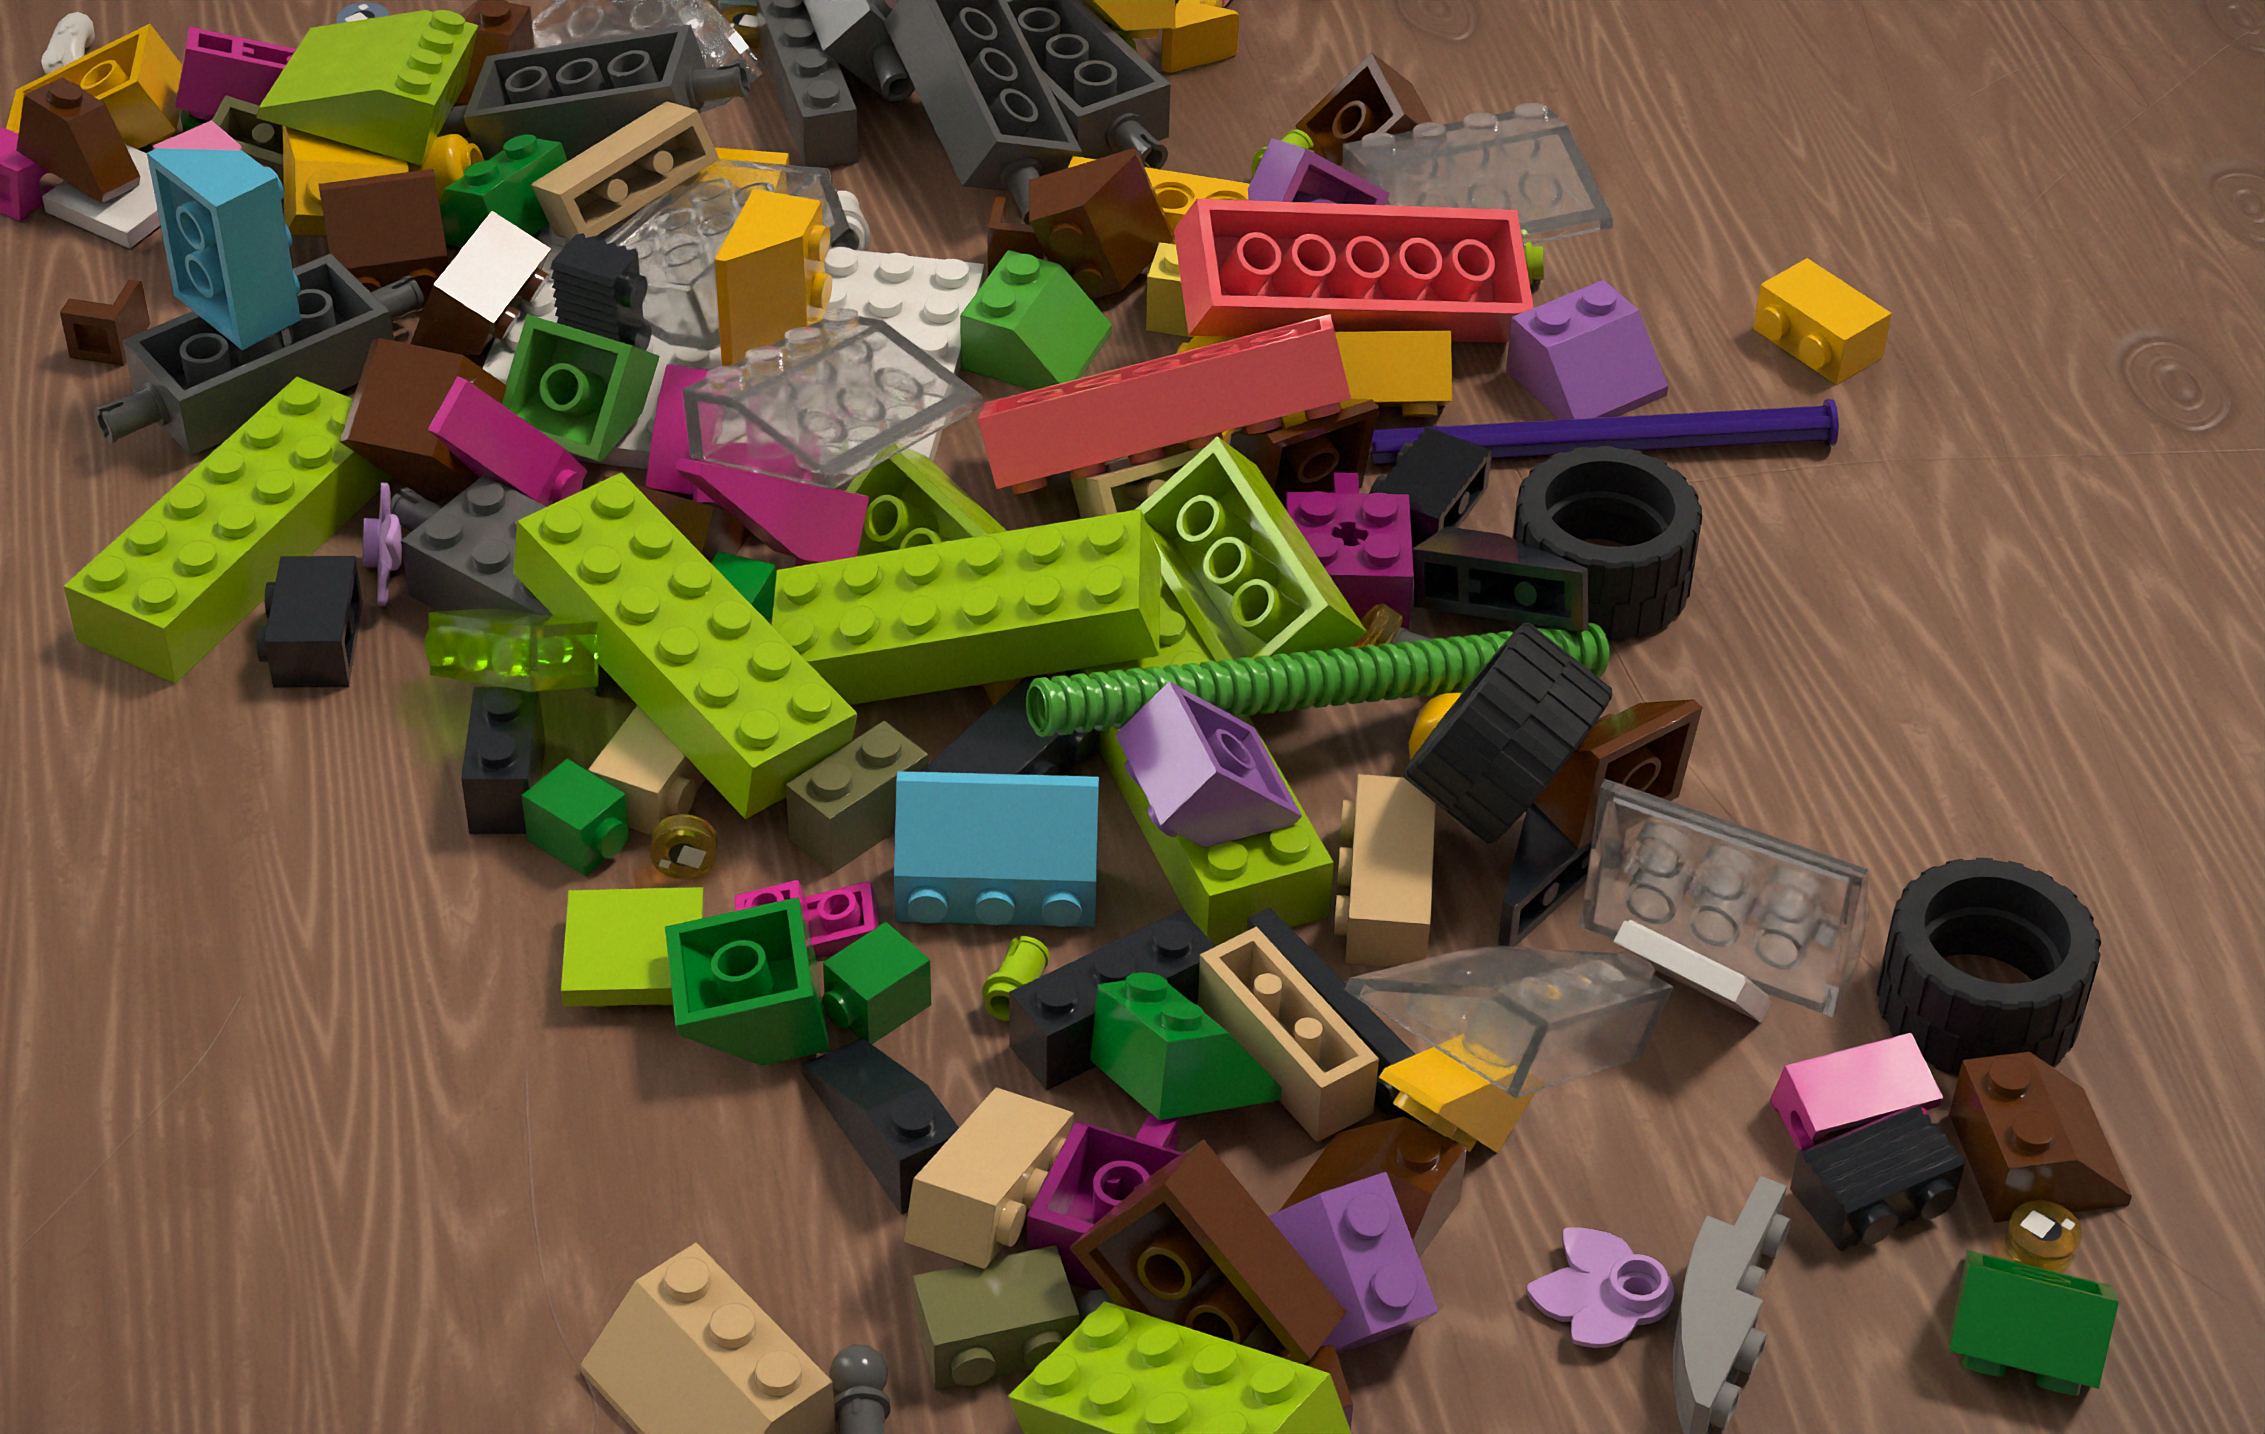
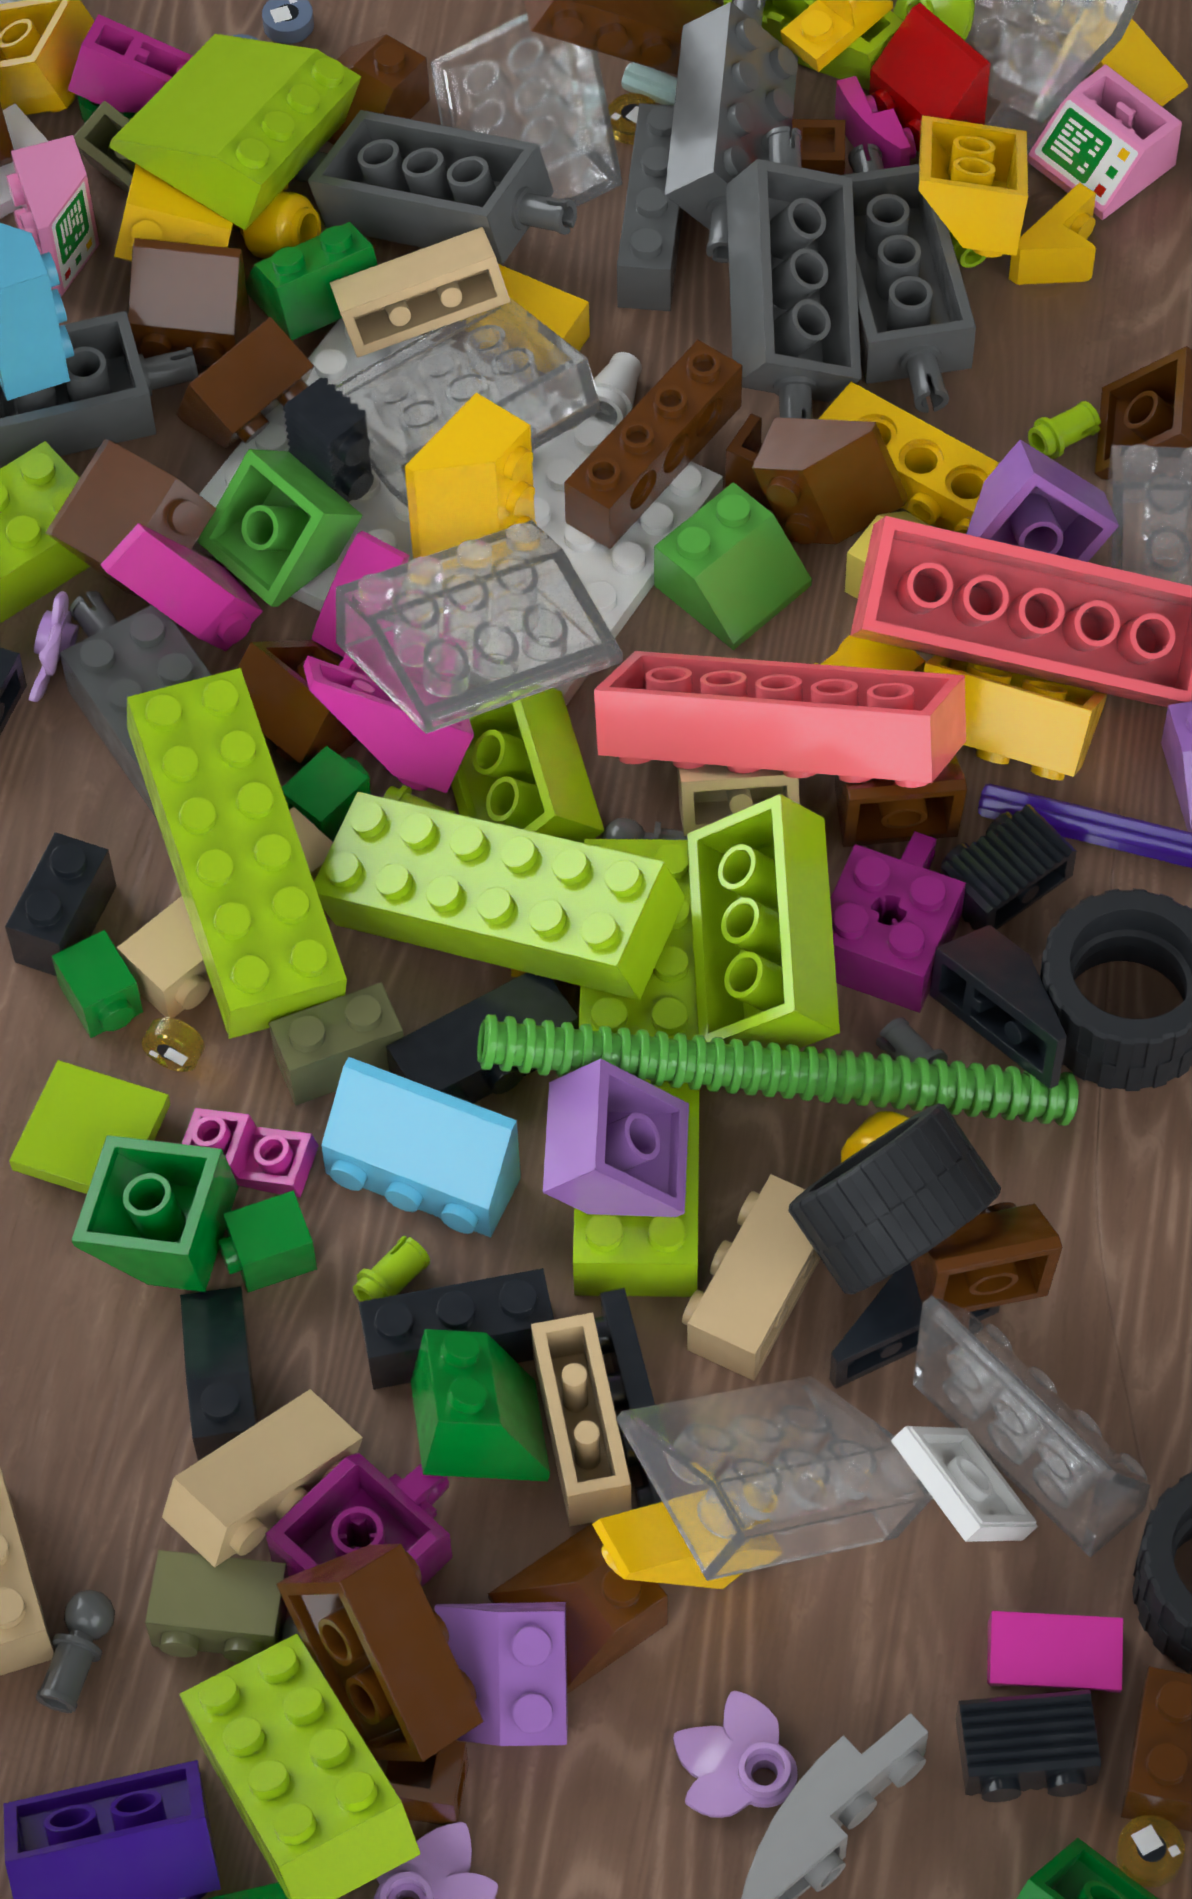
camera: 25 degrees right, 15 degrees up
(513, 649) = (99, 804): clear neon green brick -> none
(916, 236) = (653, 444): none -> reddish brown brick
(1381, 626) = (873, 1016): clear yellow tile -> none

